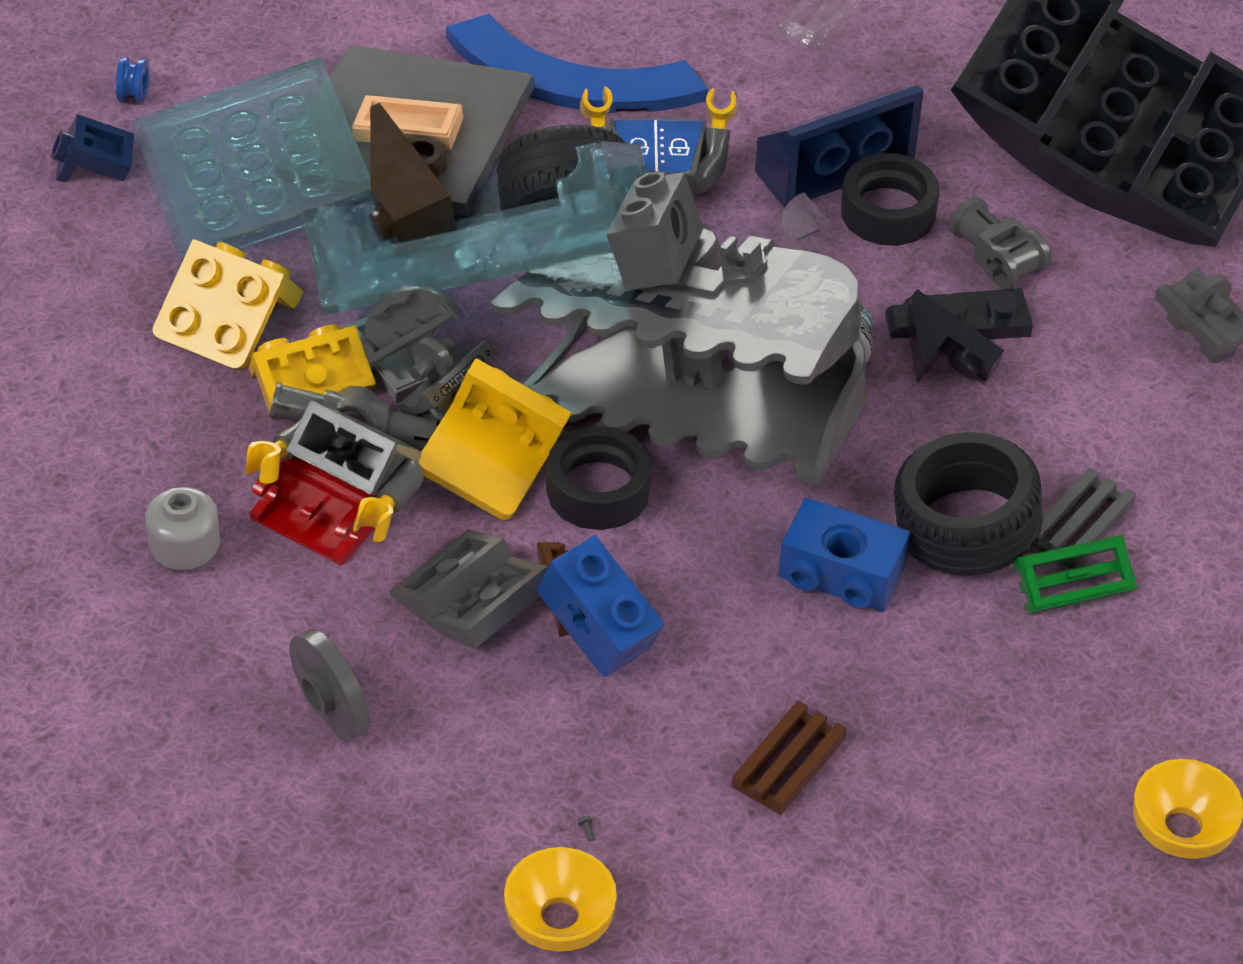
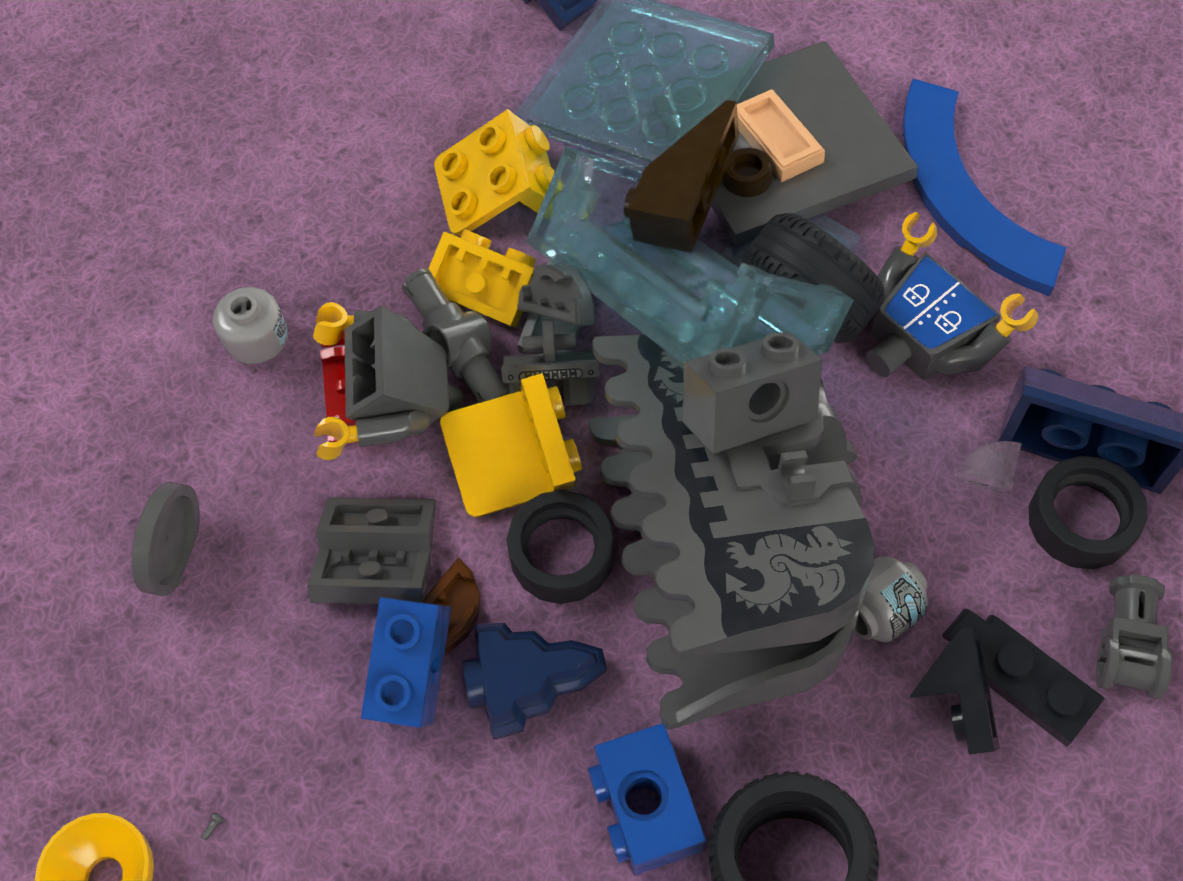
camera: 55 degrees right, 15 degrees up
(677, 564) = (524, 674): none -> dark blue rock

